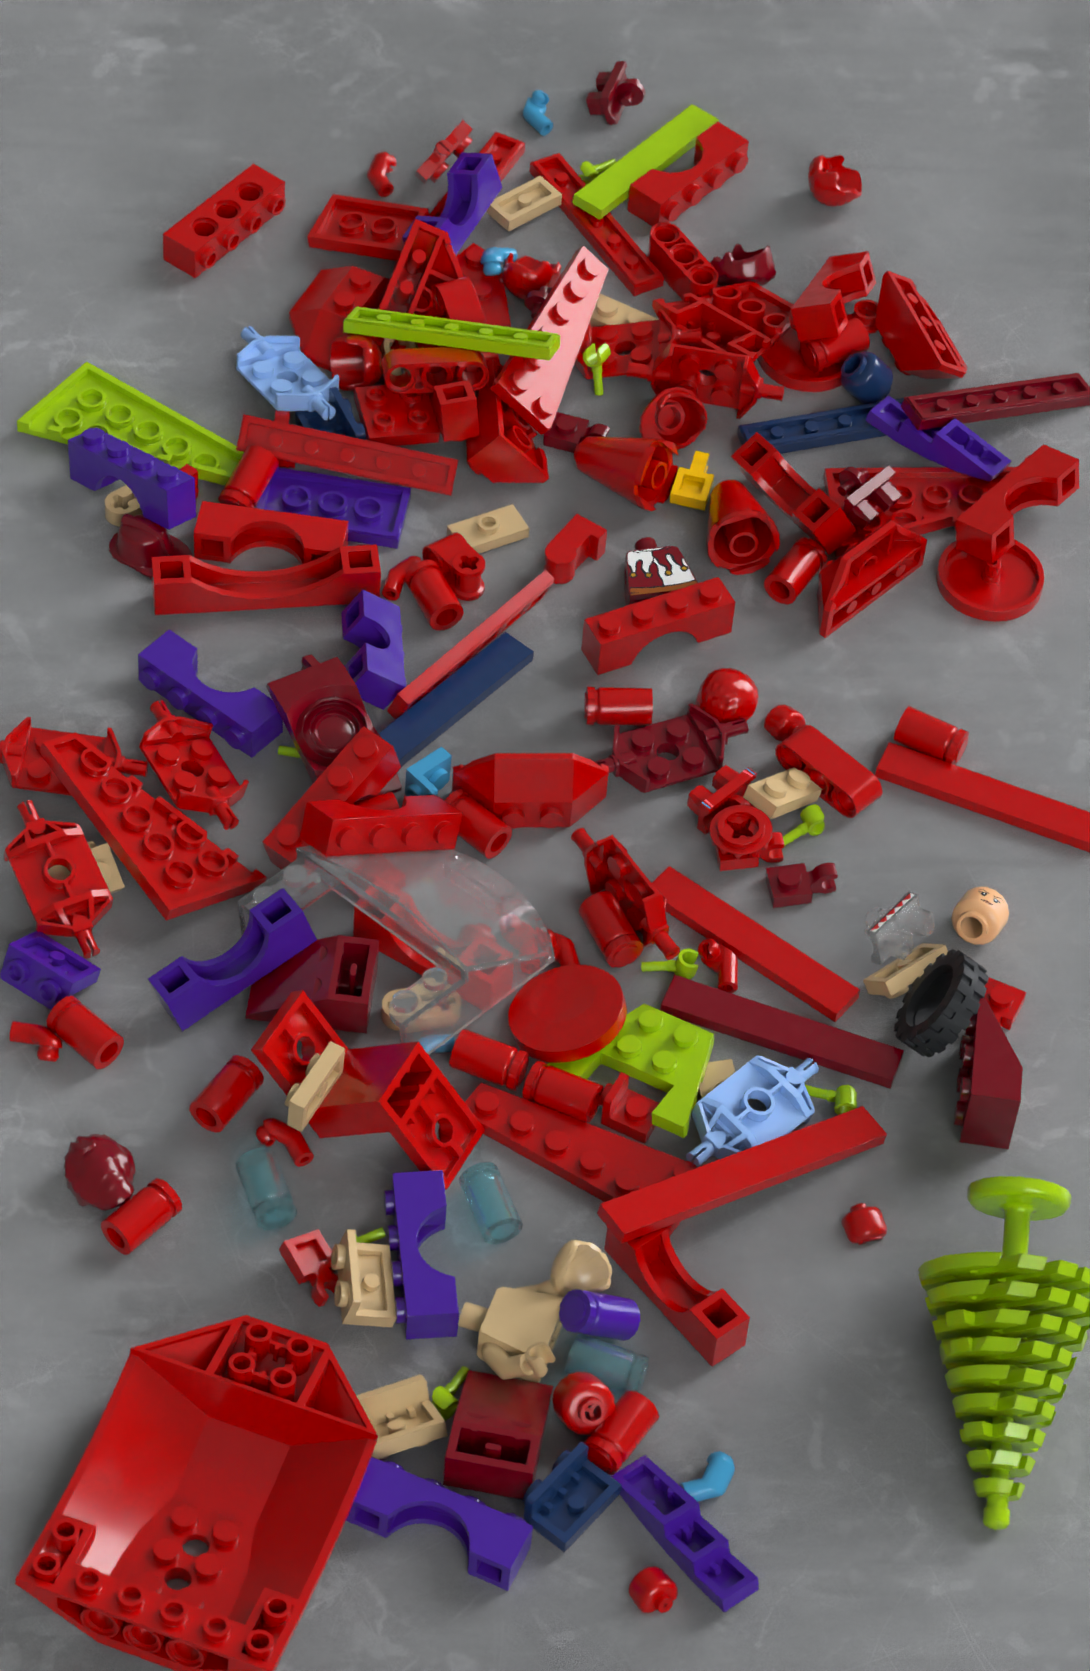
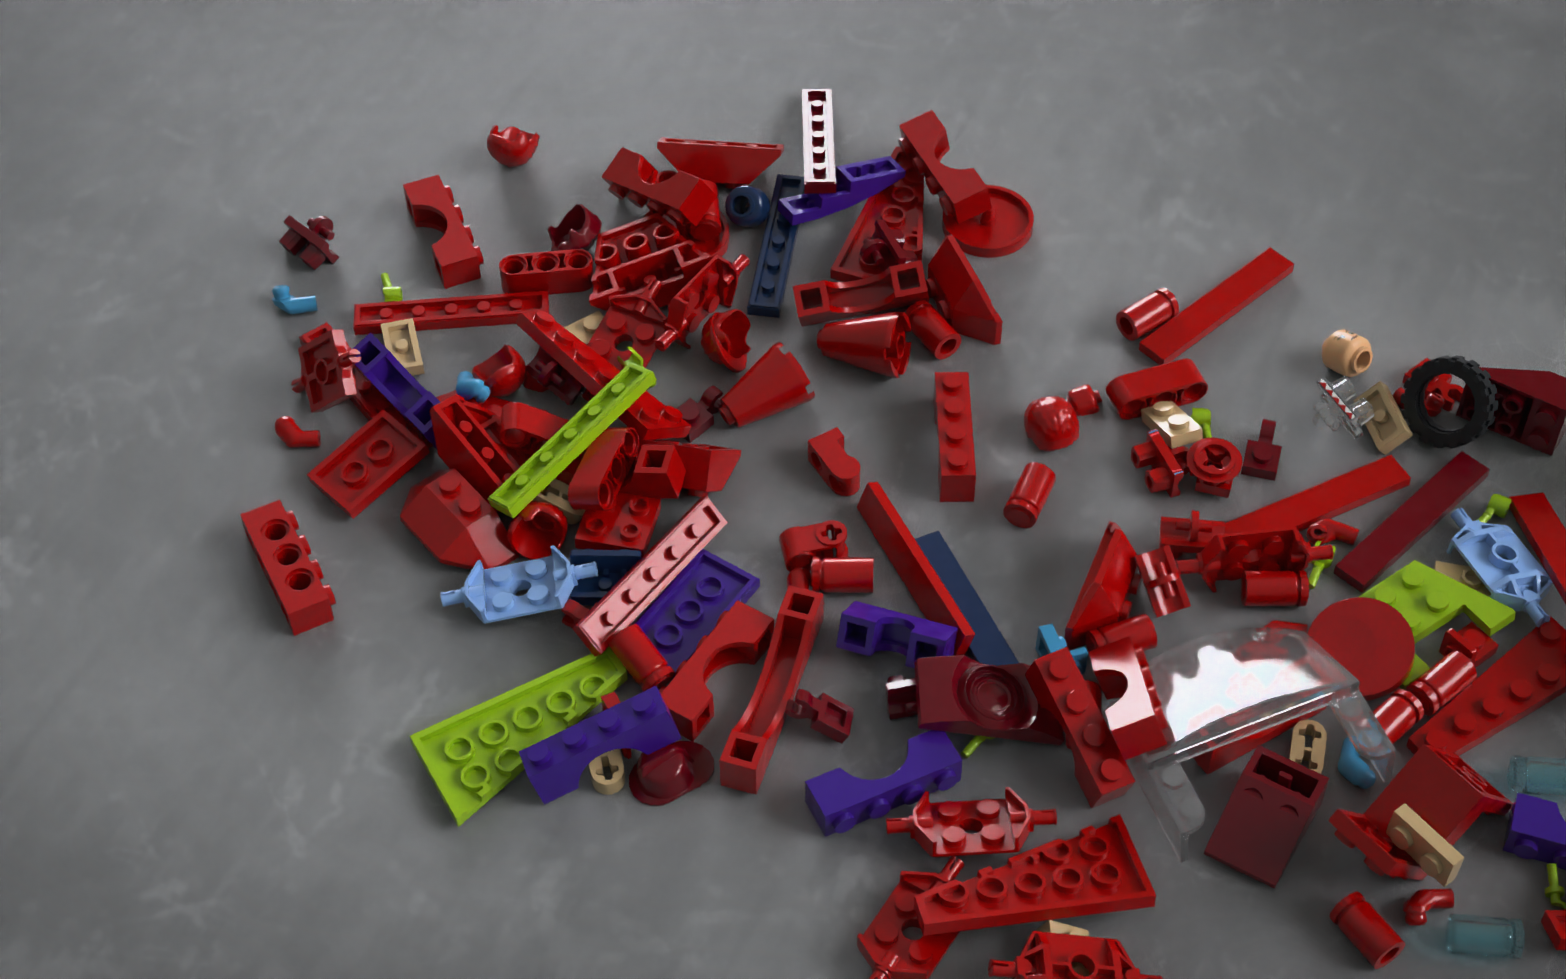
camera: 60 degrees left, 0 degrees up
(196, 988) = (1236, 865): dark purple arch -> none
(260, 632) = (826, 714): none -> dark red plate
(492, 529) = (777, 511): tan plate -> none
(554, 827) = (1162, 581): none -> red hips
(638, 837) = (1188, 534): none -> red hips
(654, 571) = (899, 420): torso -> none
(655, 153) = (406, 252): lime tile -> none
(693, 485) = (808, 356): yellow plate -> none
(693, 738) = (1094, 461): dark red plate -> none

